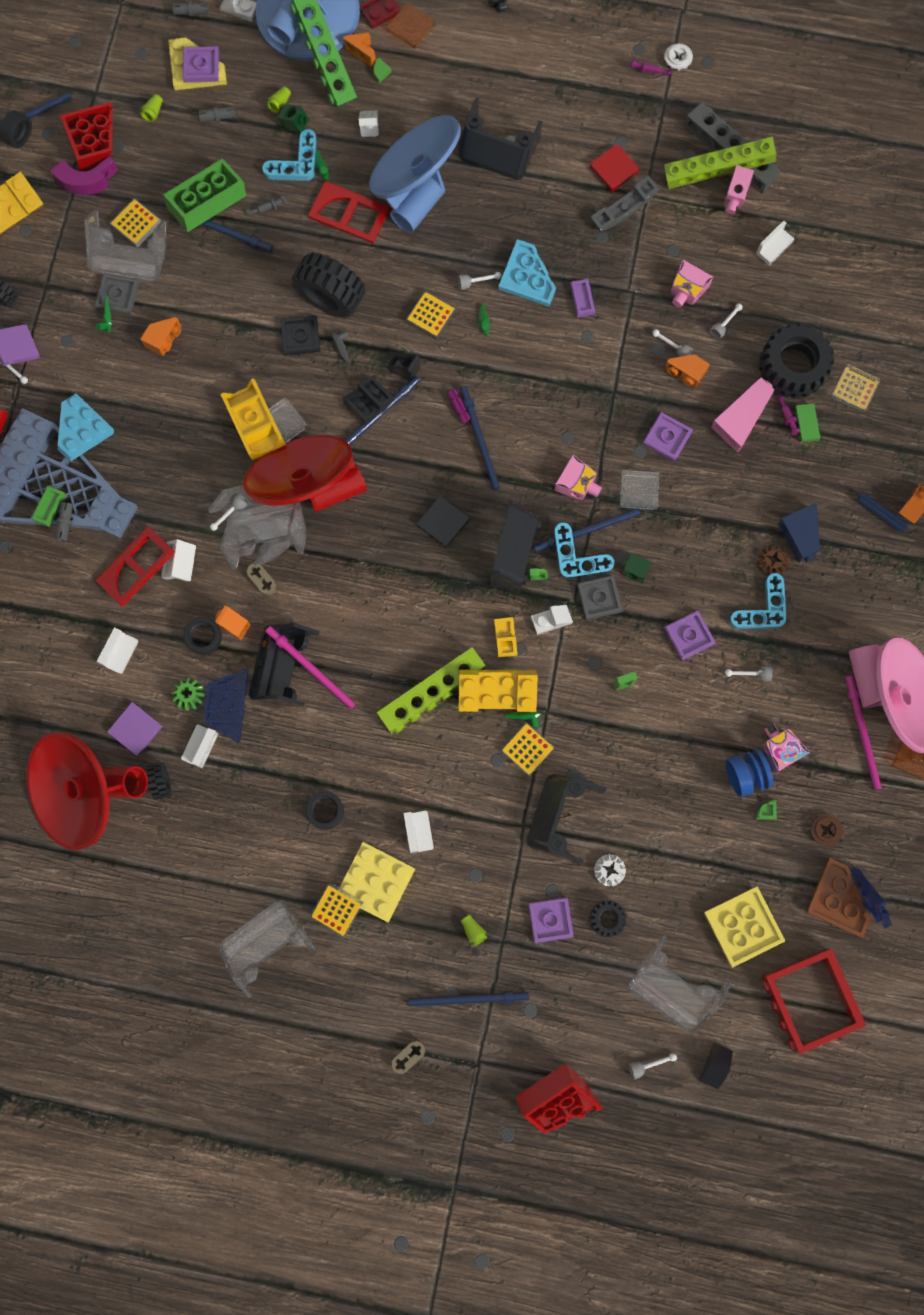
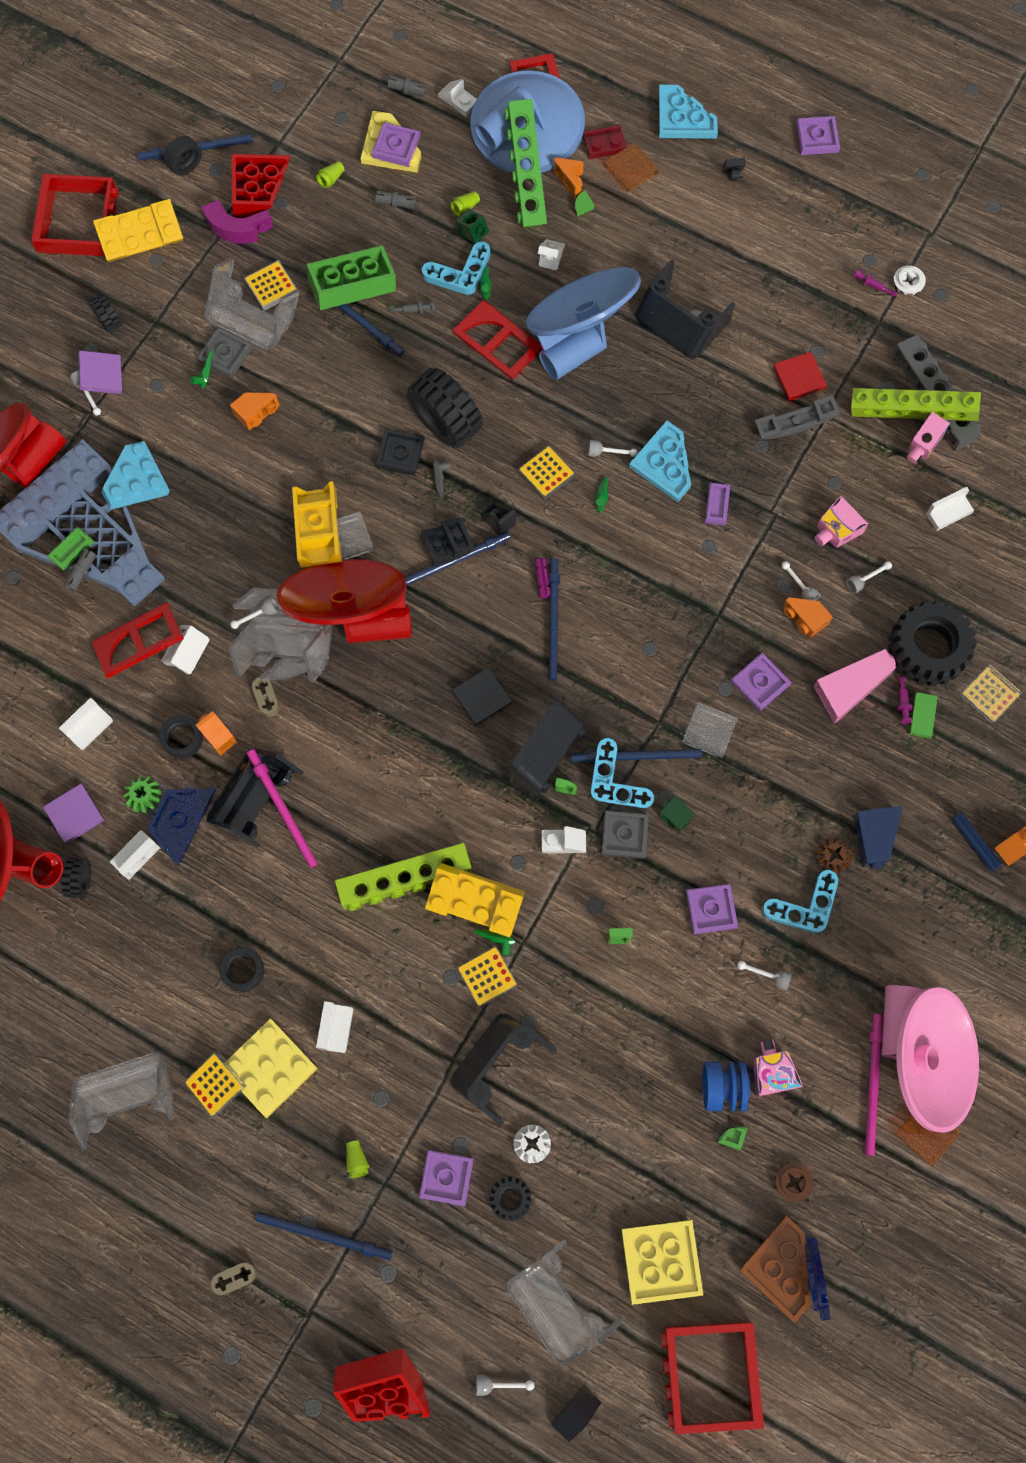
camera: 20 degrees right, 5 degrees down
(505, 637) = (506, 844): yellow slope -> none
(577, 480) = (644, 698): bright pink torso -> none

